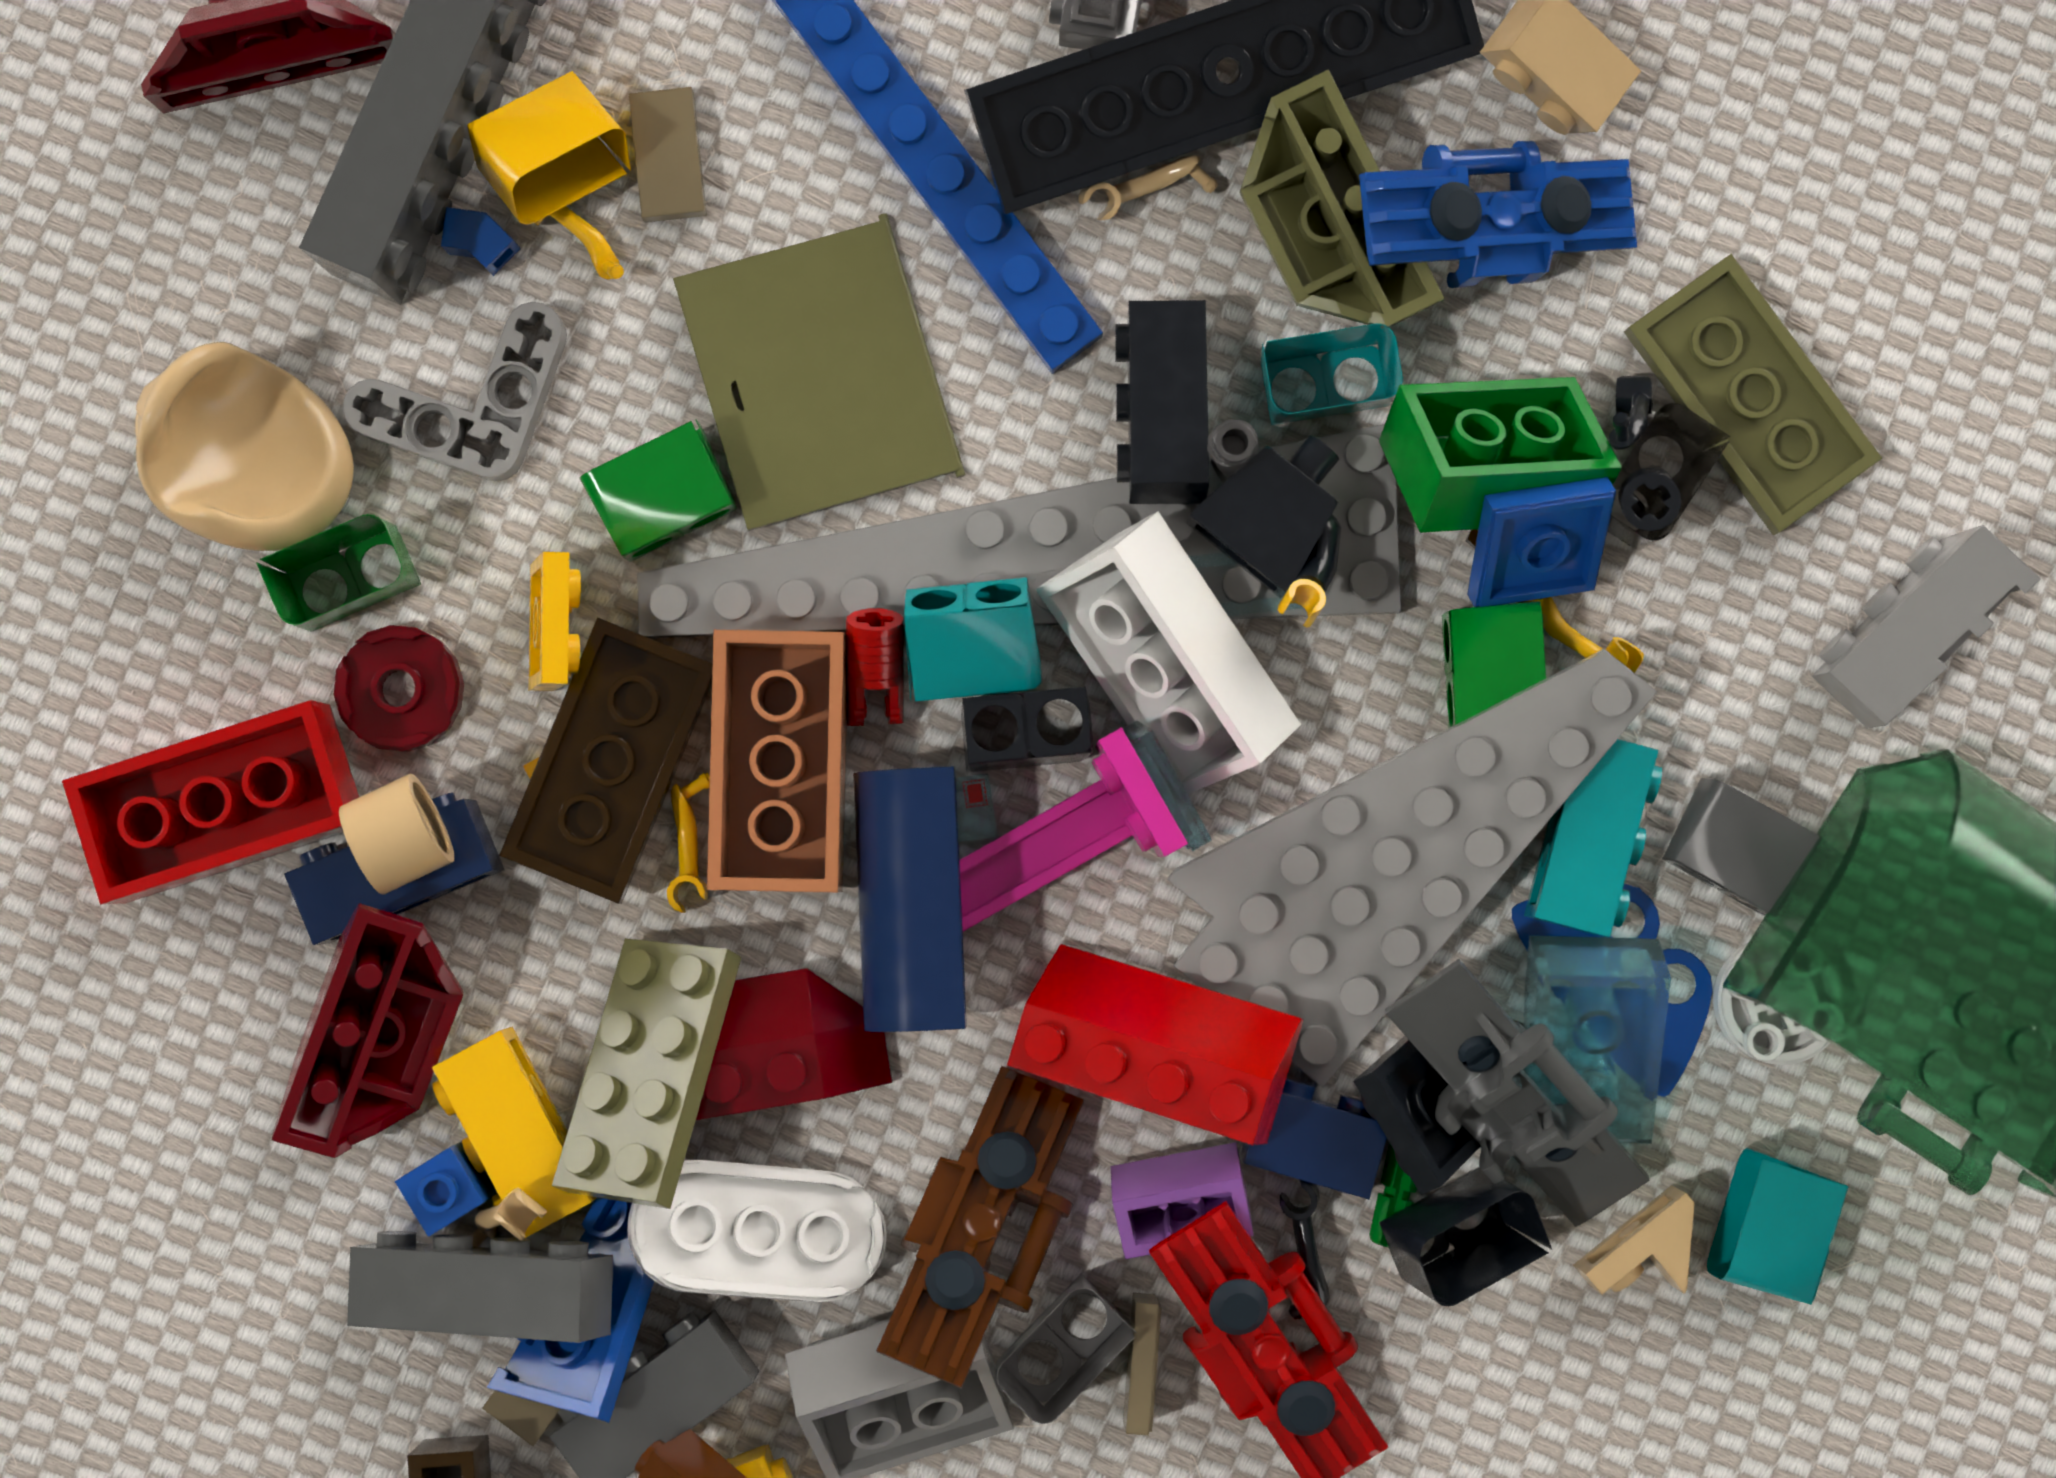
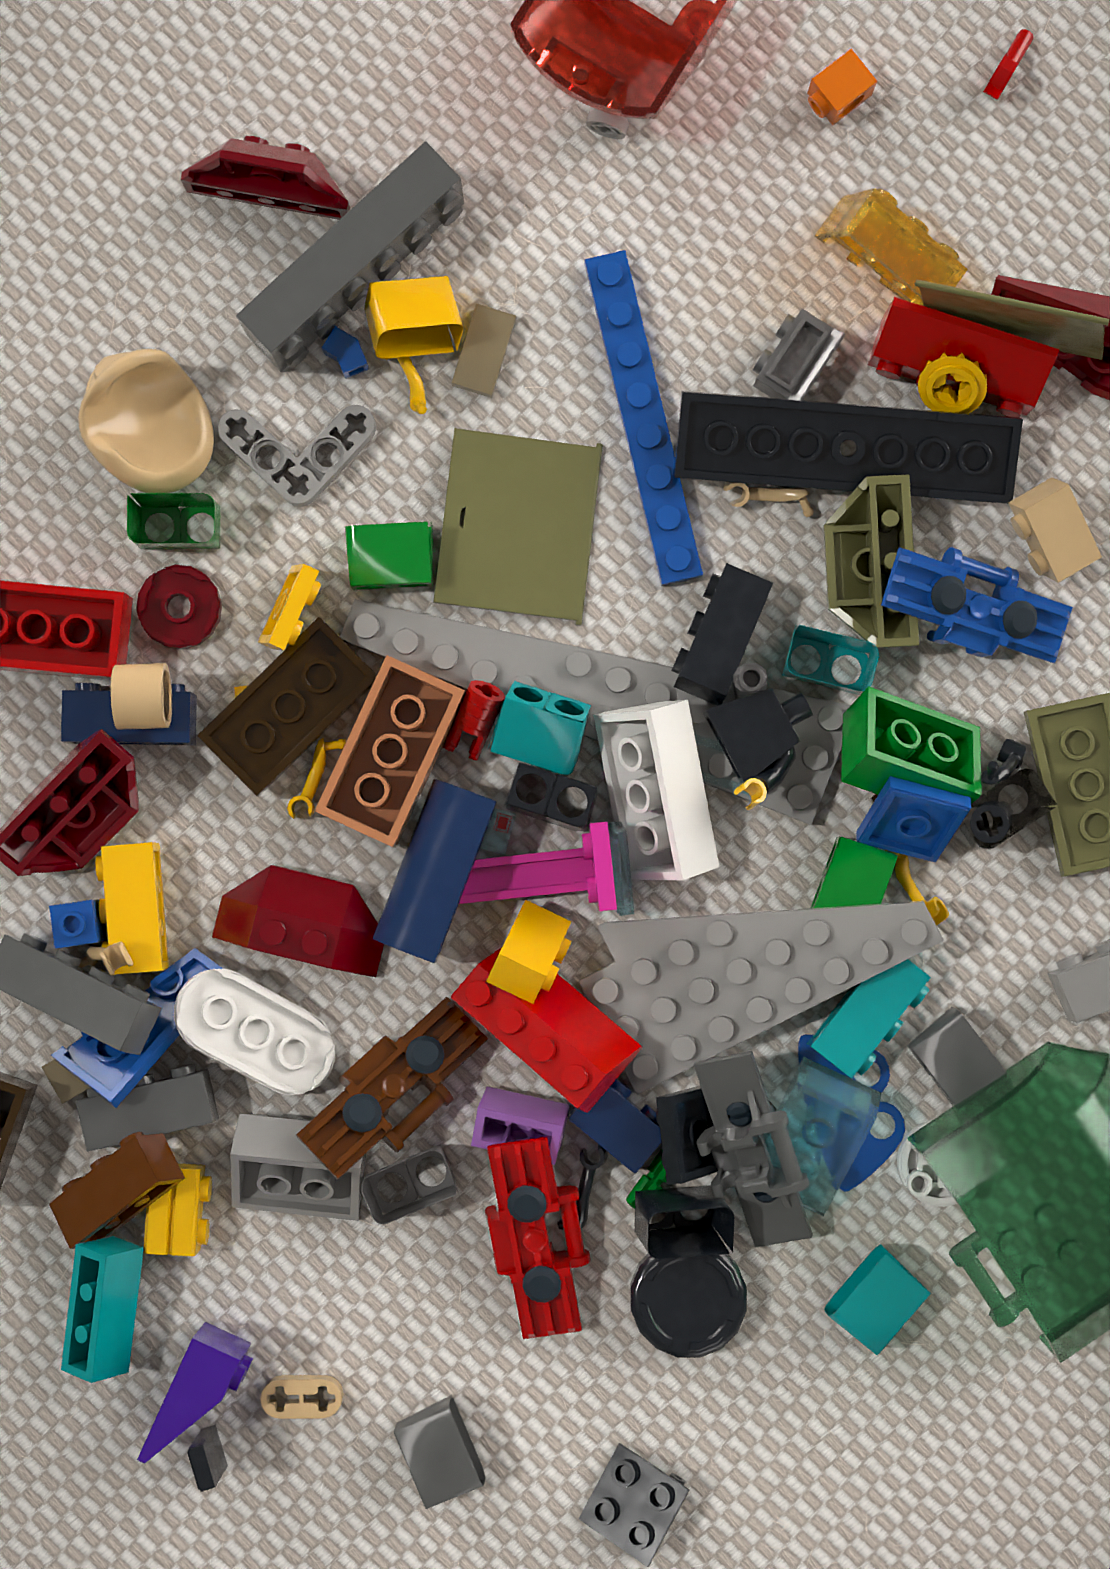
camera: 20 degrees right, 0 degrees up
(647, 1072) = (230, 906): plate -> none
(1091, 955) = (529, 952): none -> yellow brick
(1142, 1364) = (453, 1214): dark tan tile -> none
(1519, 1346) = (688, 1303): none -> black piece
(1656, 1232) = (802, 1271): tan slope -> none

